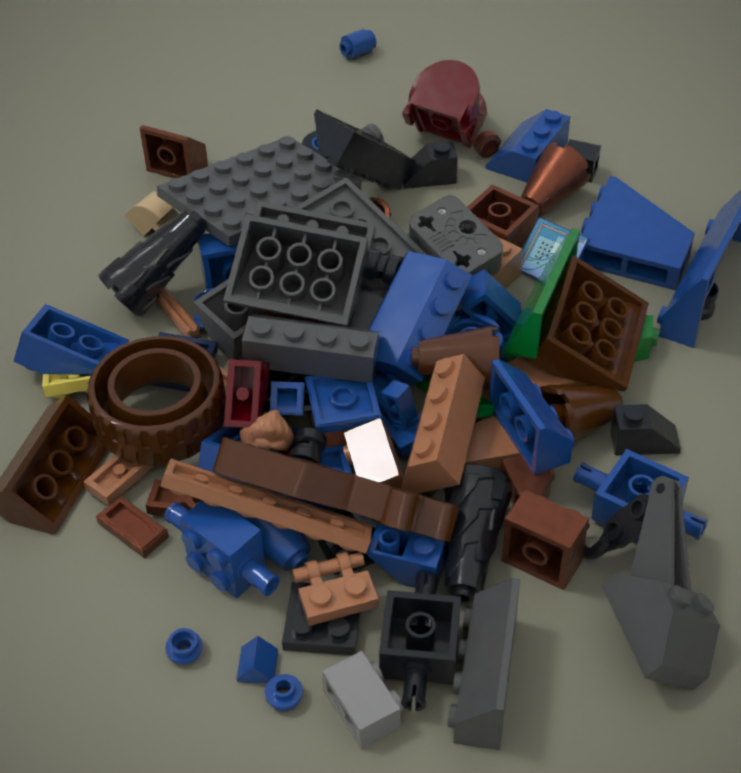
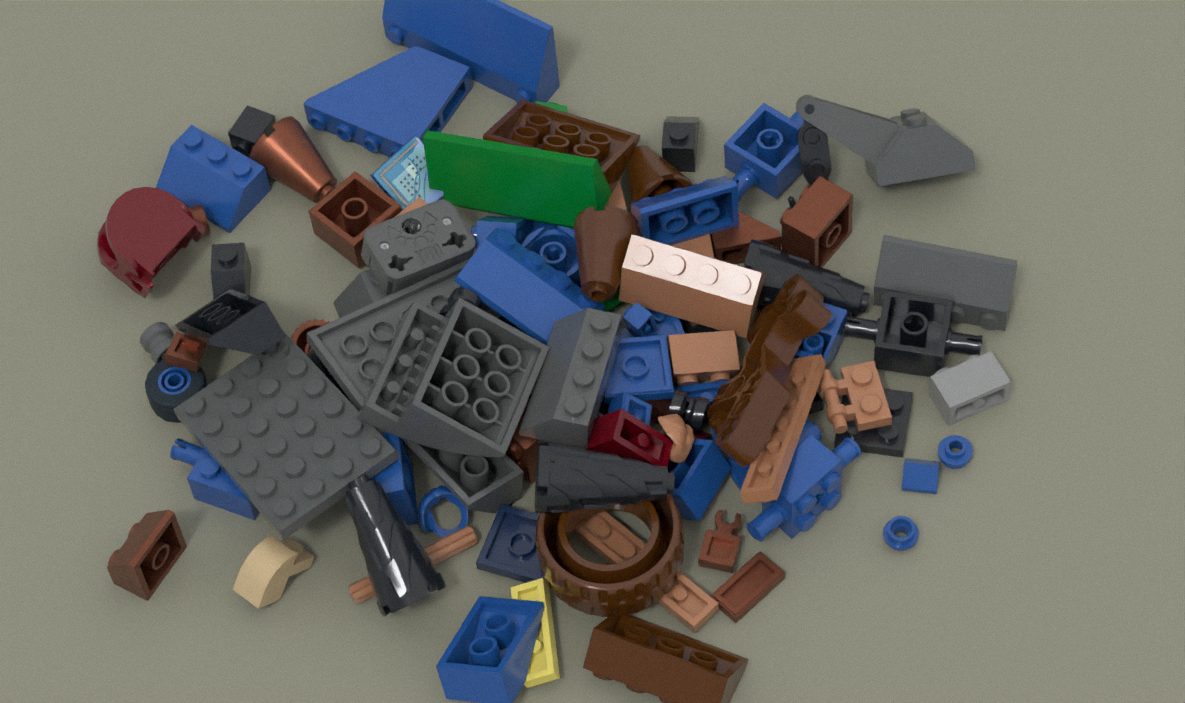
camera: 80 degrees left, 10 degrees up
(185, 342) = (586, 479): none -> black cone

